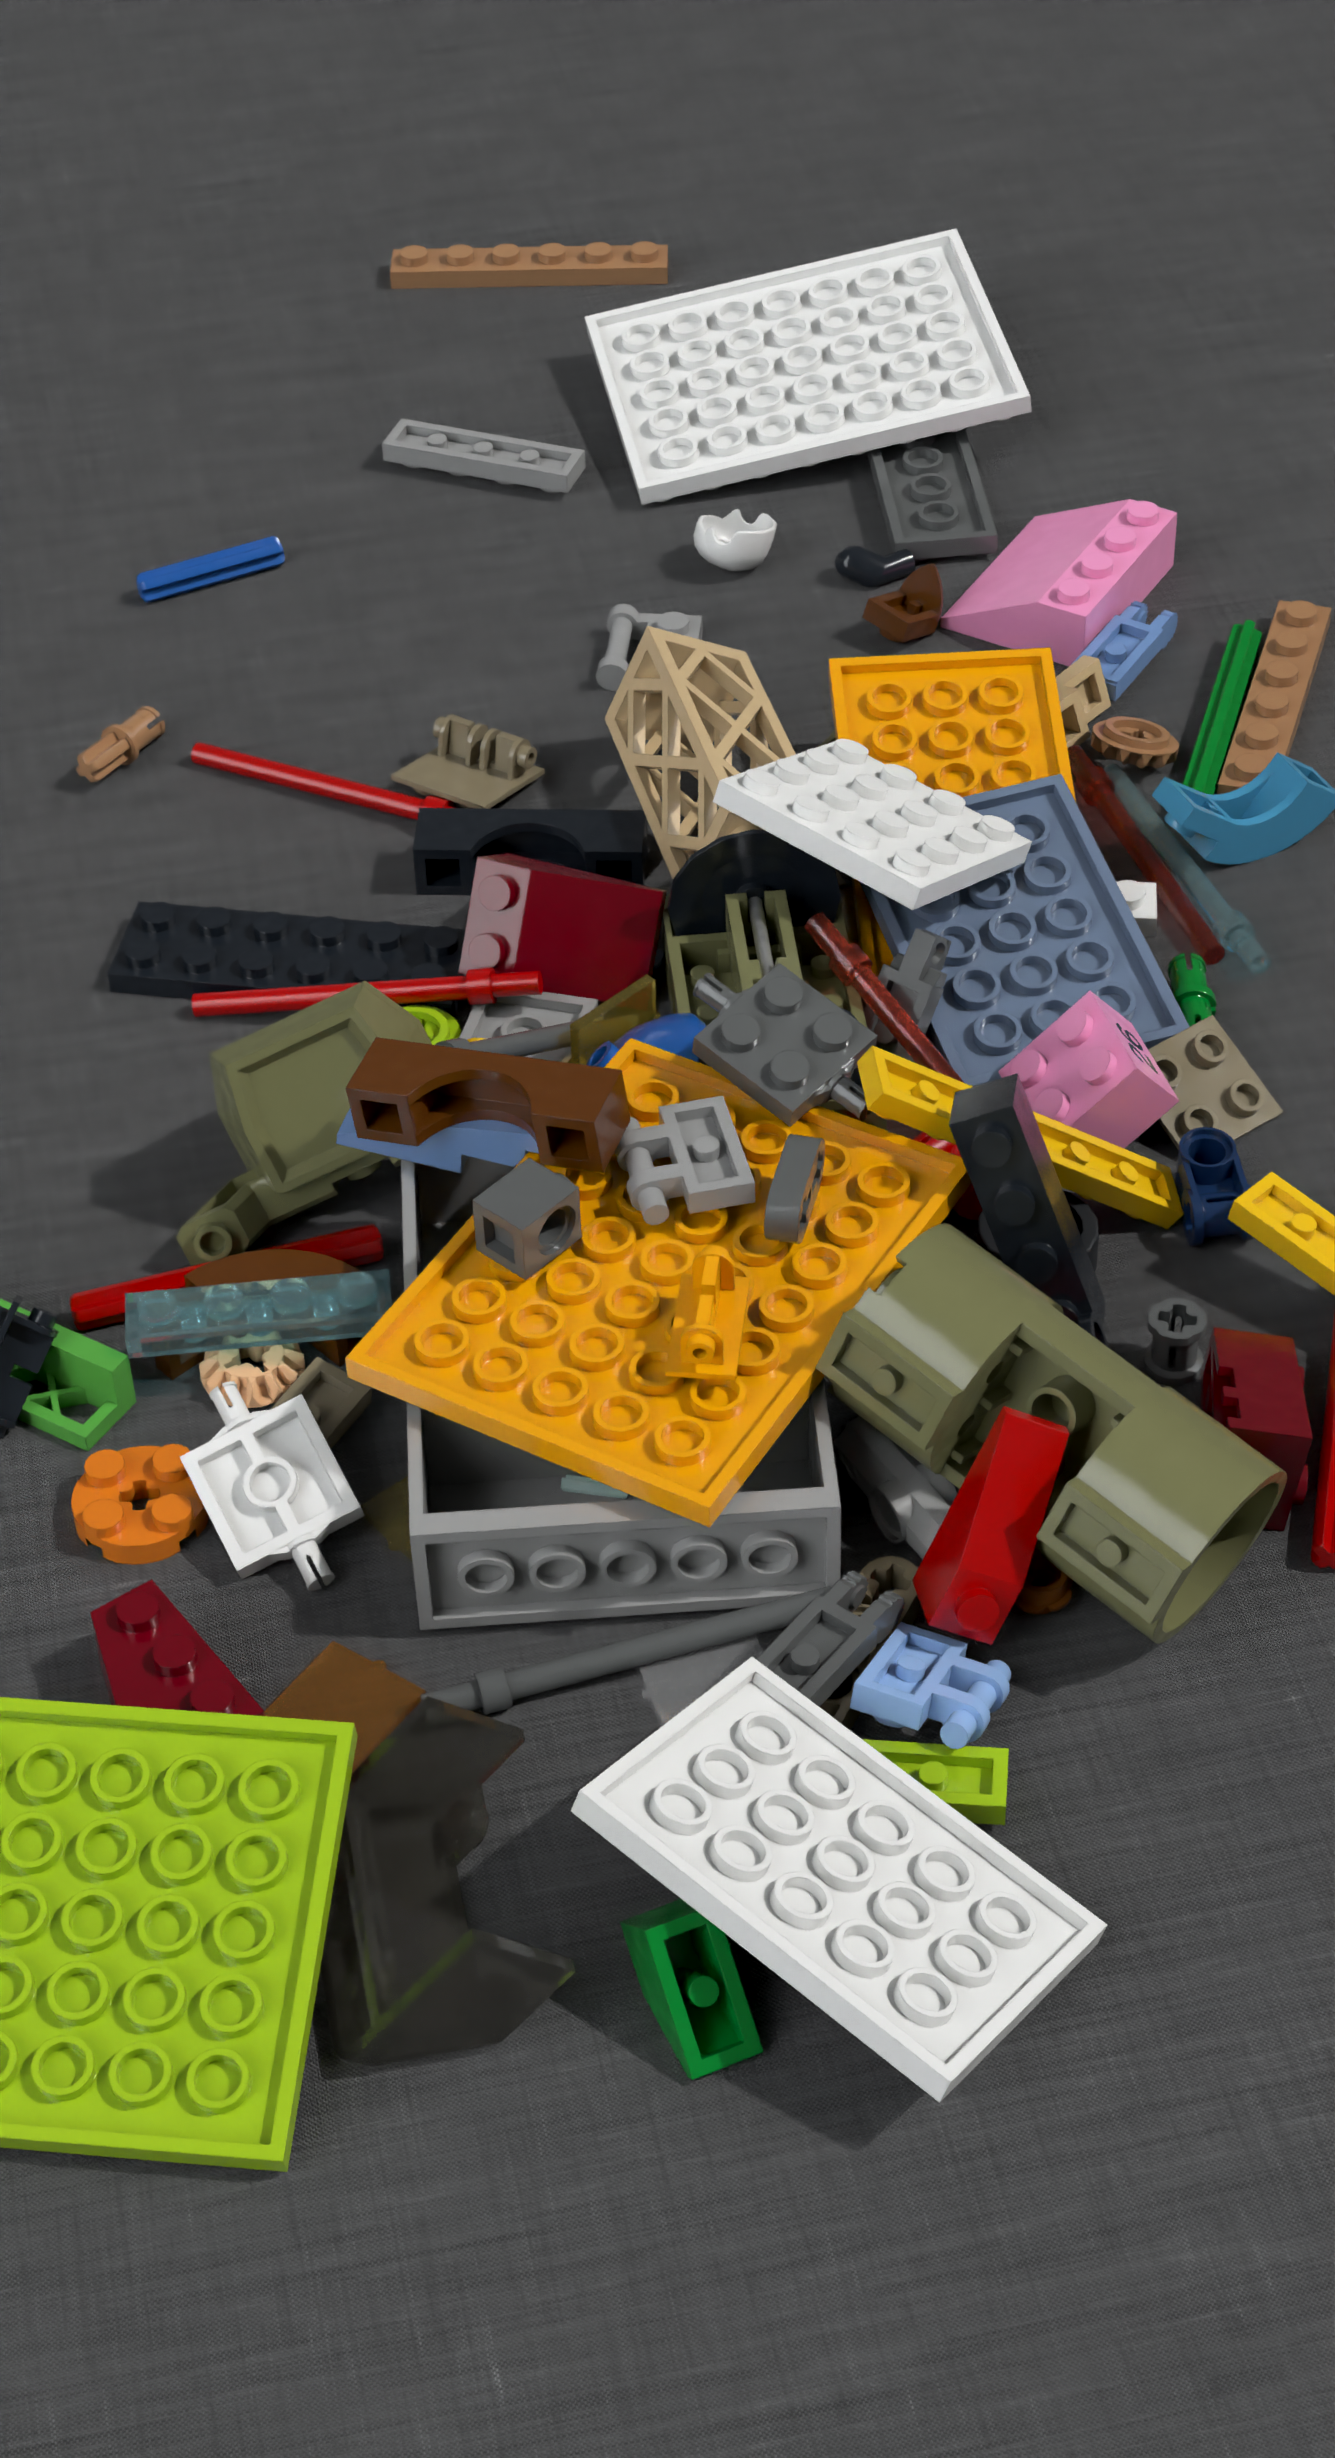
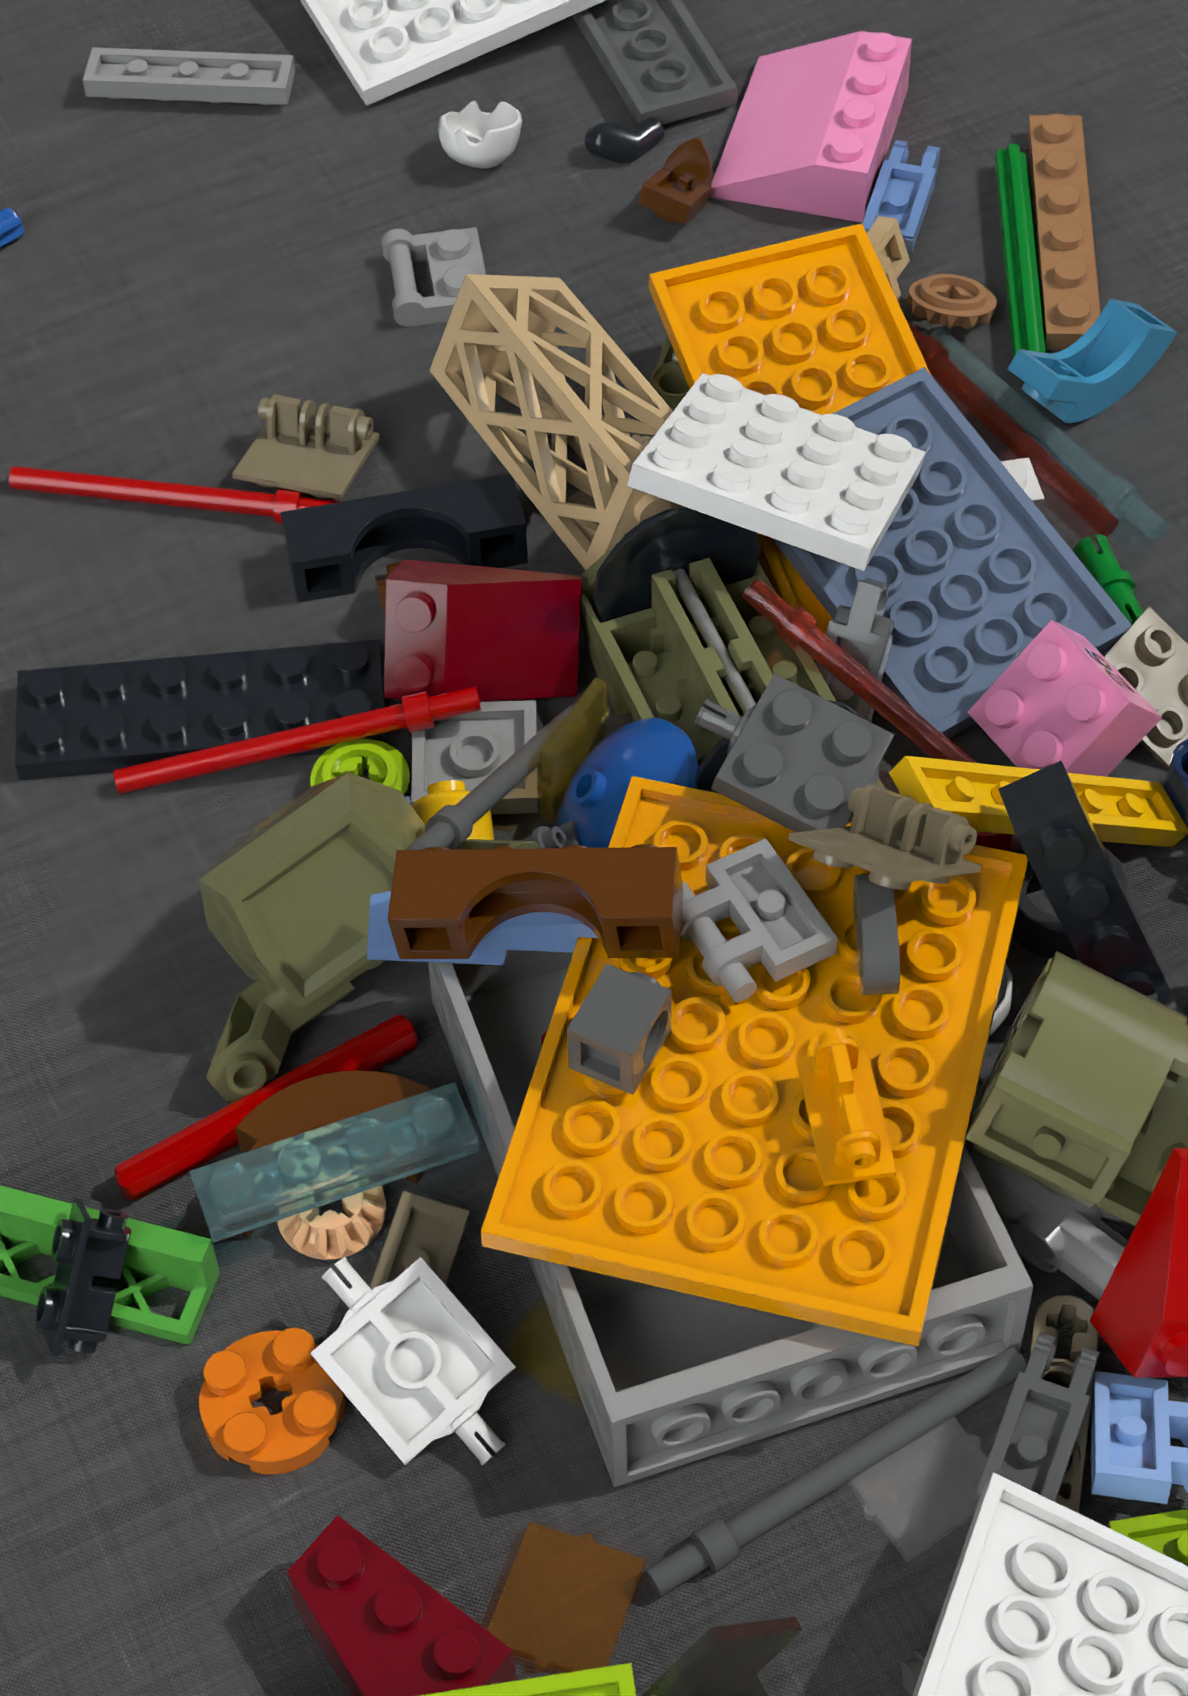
camera: 15 degrees left, 10 degrees up
(839, 1107) = (895, 840): none -> dark tan hinge

